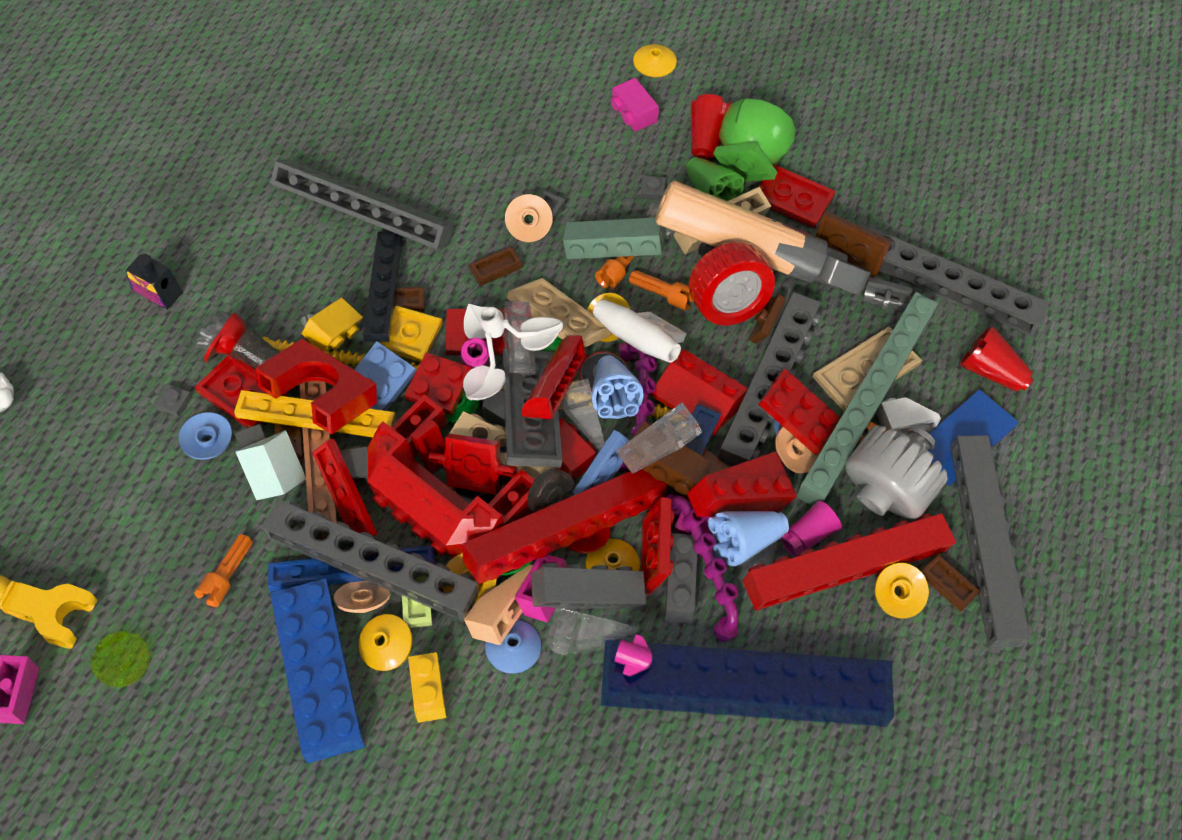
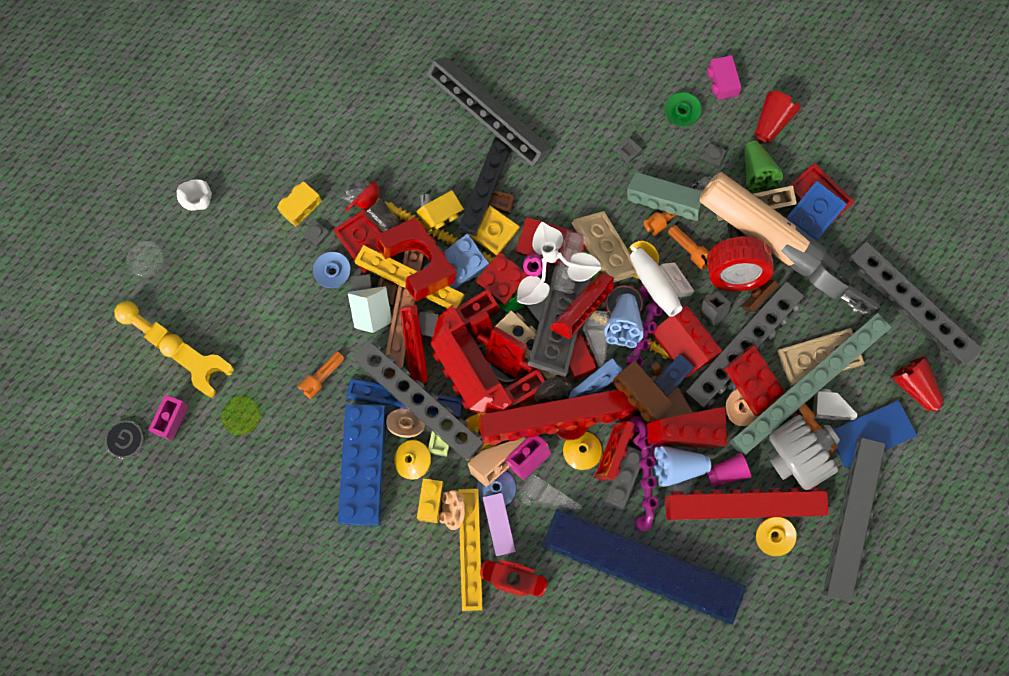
camera: 25 degrees right, 15 degrees up
(140, 369) = (299, 203): none -> yellow brick
(148, 276) = (321, 133): black torso -> none
(462, 688) = (452, 509): none -> light nougat dish
(495, 266) = (572, 191): reddish brown plate -> none
(504, 739) = (470, 552): none -> yellow plate
(524, 206) = (602, 164): light nougat dish -> none
(532, 690) = (499, 524): none -> lavender tile
(587, 587) = (556, 469): dark grey brick -> none
(598, 147) = (685, 102): none -> green dish
(599, 756) = (499, 573): none -> red piece
(634, 656) = (570, 528): dark pink piece -> none
(654, 60) = (756, 44): yellow dish -> none
(660, 439) = (639, 380): clear slope -> none
(719, 345) = (715, 308): none -> dark grey brick
(754, 139) = (803, 143): bright green plate -> none
(799, 203) = (816, 210): none -> blue plate
(861, 245) = (853, 261): reddish brown tile -> none
(950, 583) = (813, 540): reddish brown plate -> none

